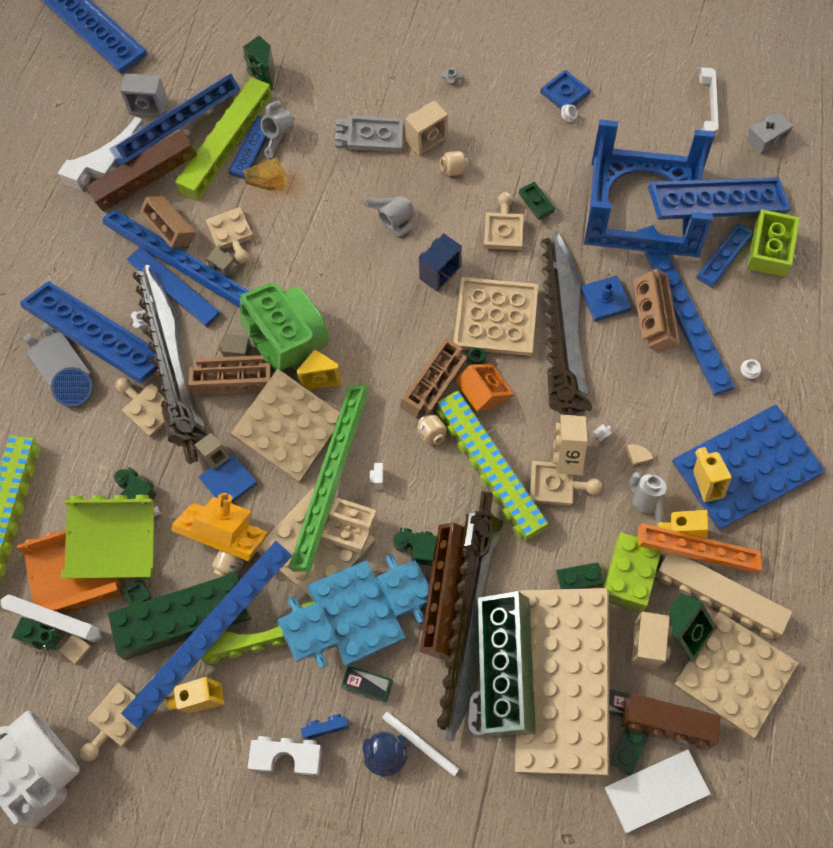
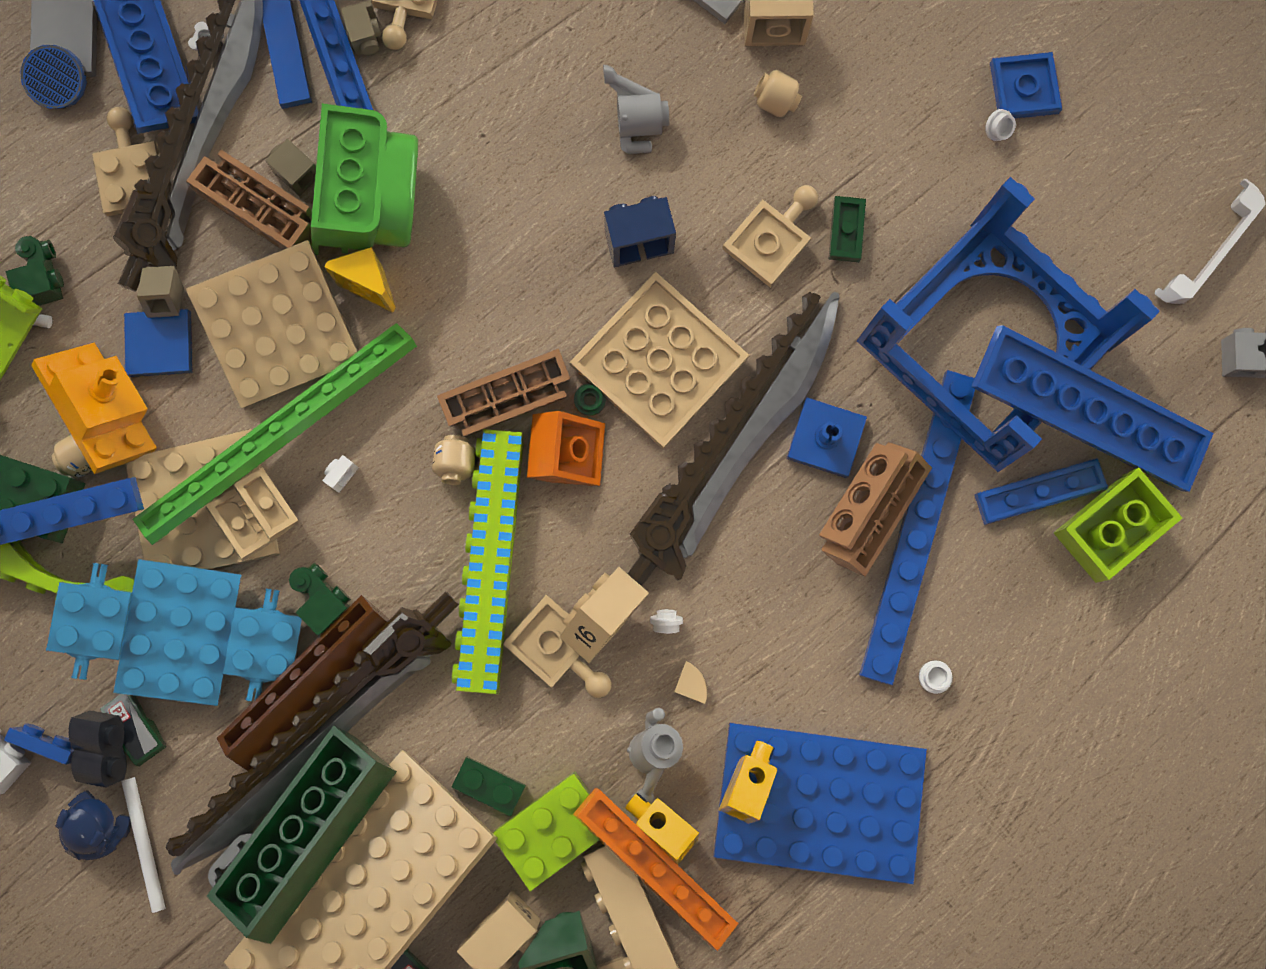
camera: 30 degrees right, 15 degrees up
(359, 704) = (97, 748): none -> black brick

